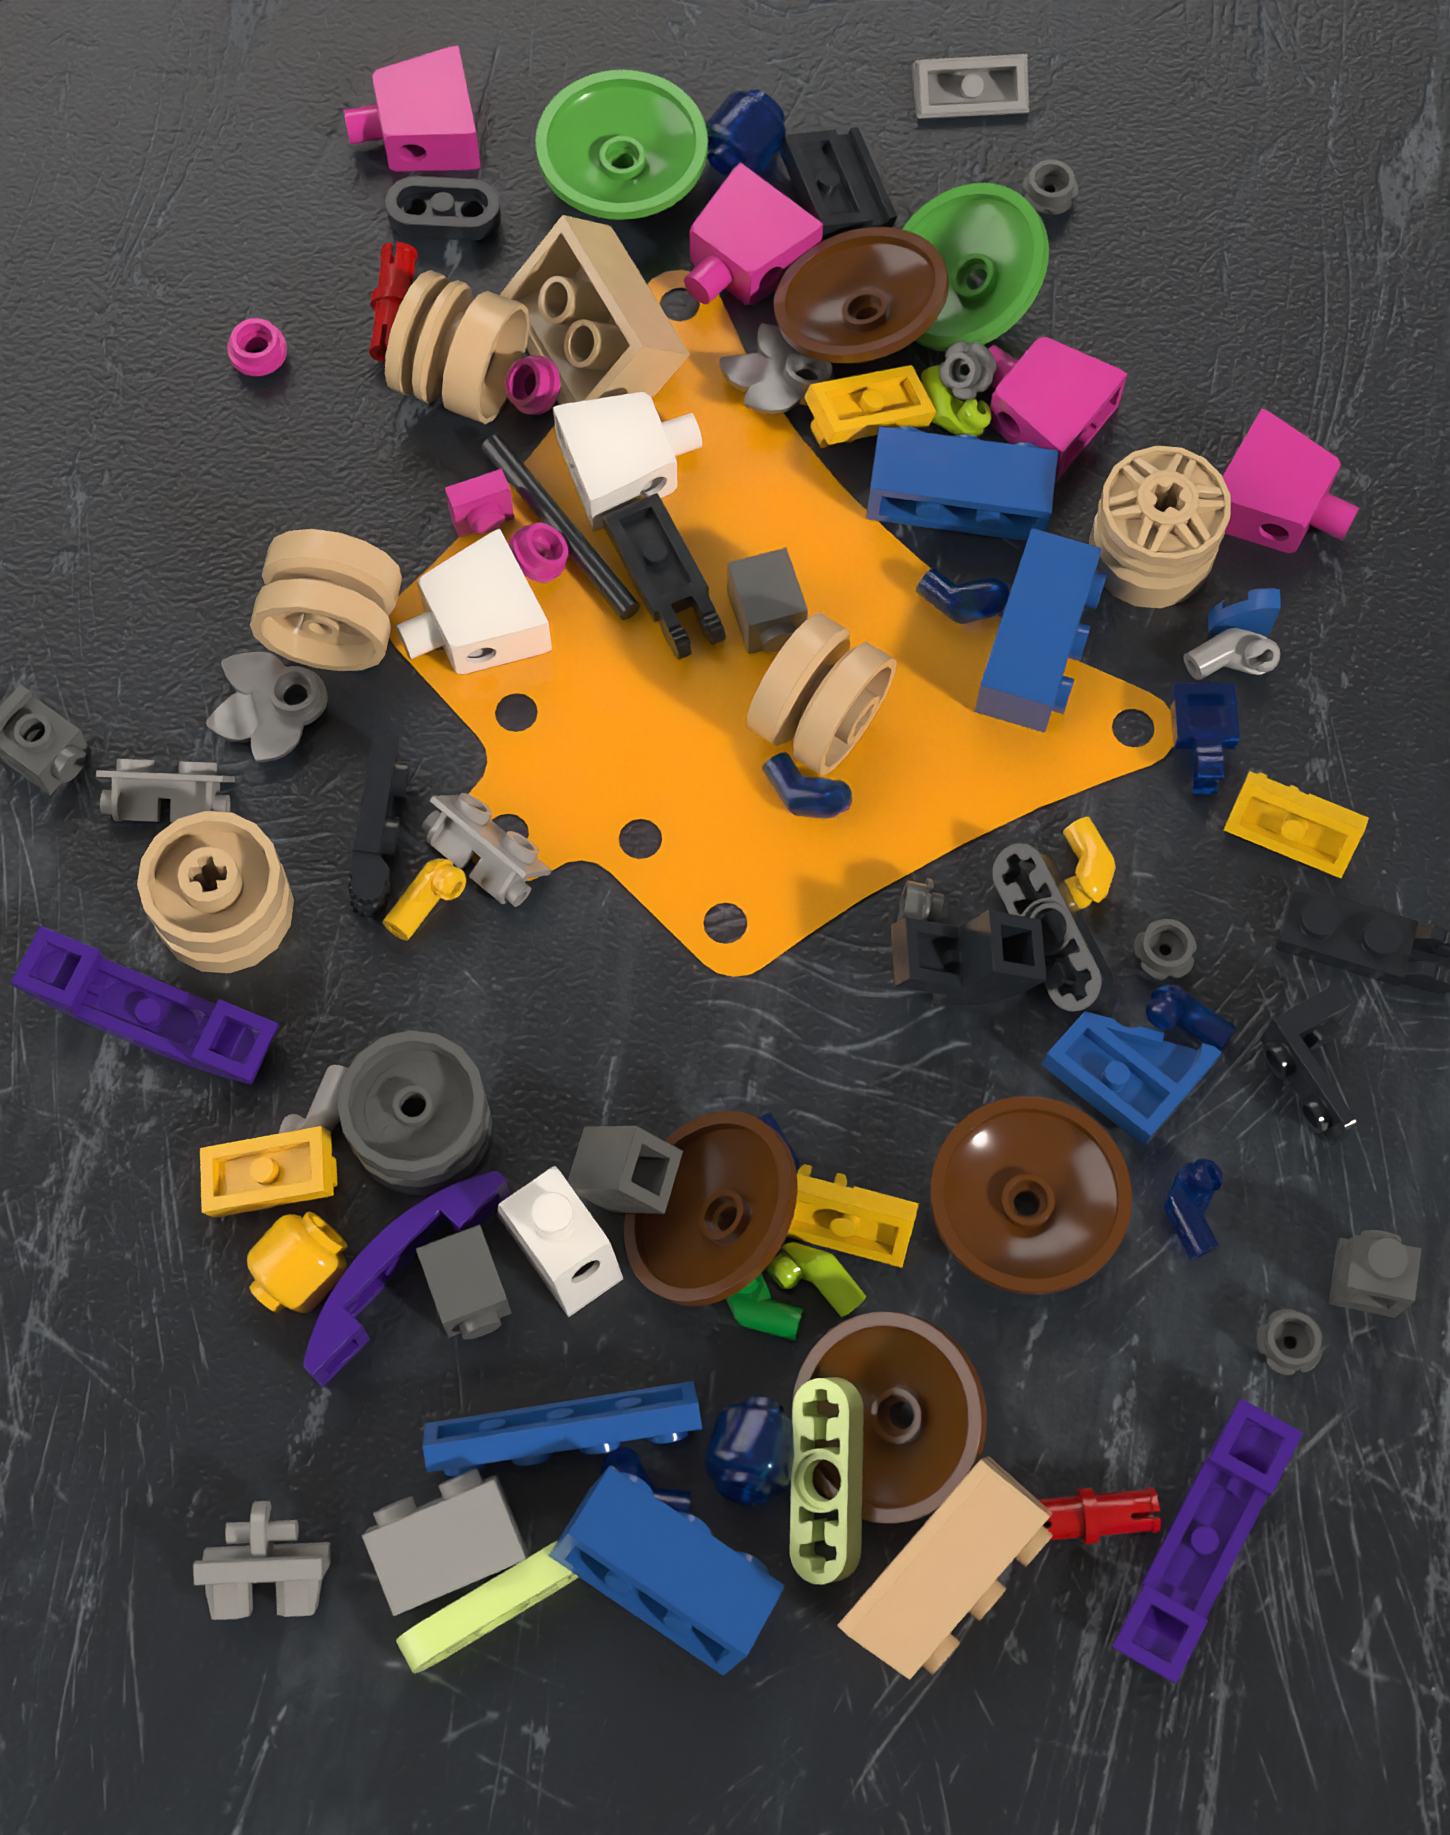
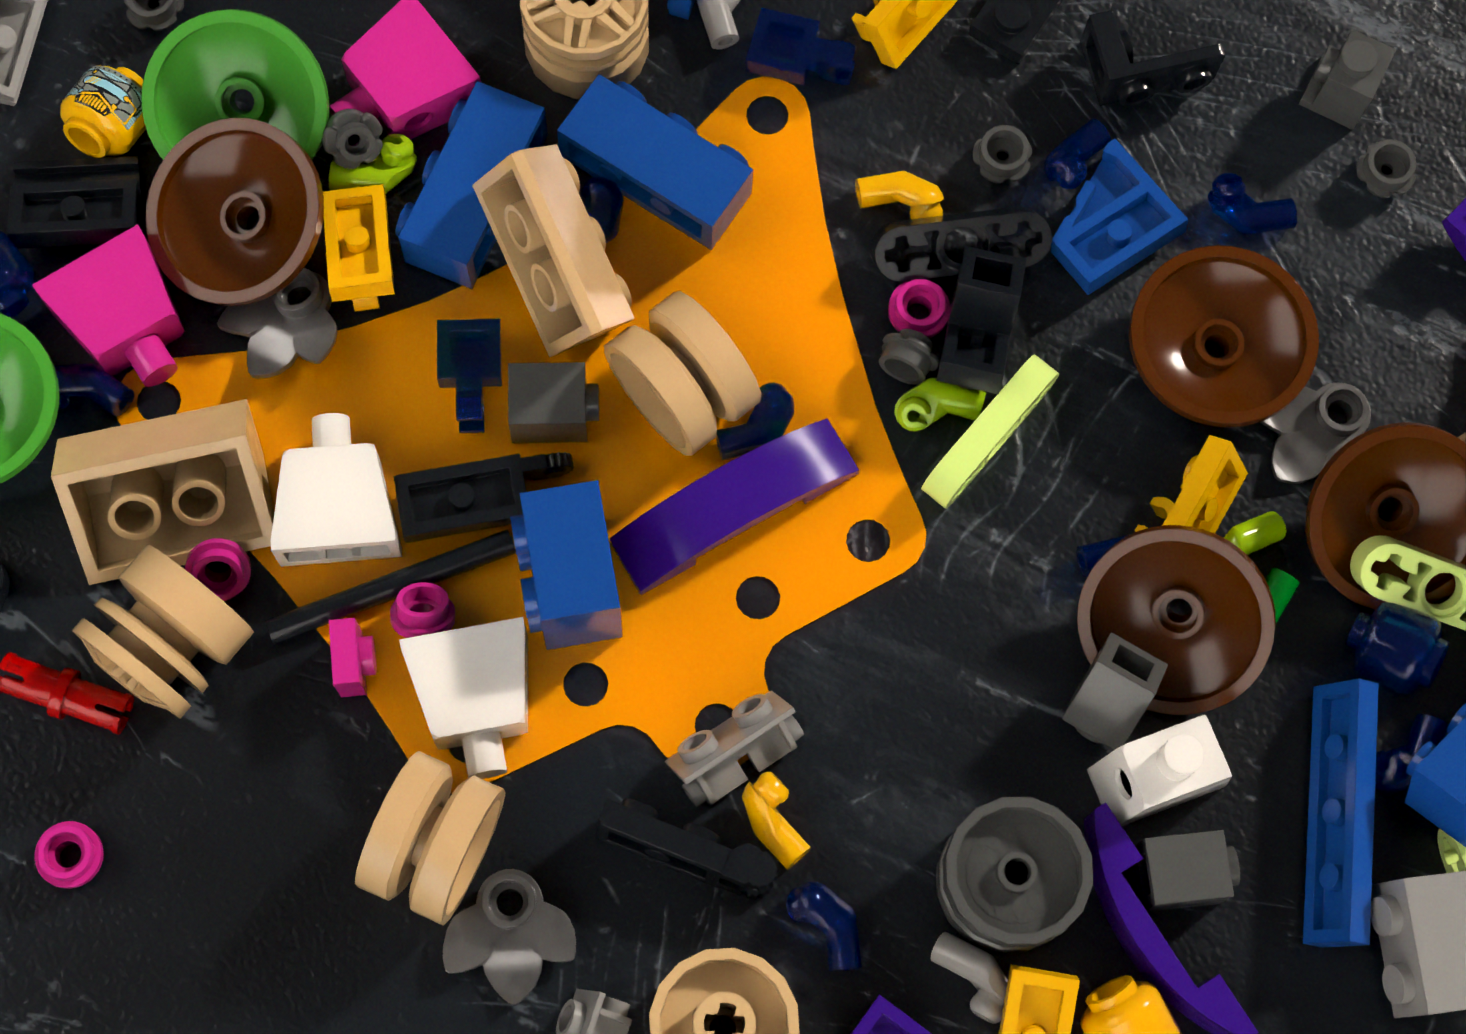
camera: 80 degrees left, 5 degrees up
(345, 972) = (833, 917): none -> clear blue arm
(607, 647) = (572, 567): none -> blue brick
(675, 235) = (95, 384): none -> clear blue arm
(728, 789) = (731, 501): none -> dark purple slope
(785, 521) = (469, 360): none -> clear blue plate
(864, 1000) = (989, 431): none -> yellowish green beam
(872, 936) = (935, 399): none -> lime arm
(910, 552) = (553, 248): none -> tan slope
(925, 172) = (104, 111): none -> yellow head
(970, 892) = (919, 292): none -> dark pink plate
(971, 1317) = (1309, 435): none -> flat silver plate

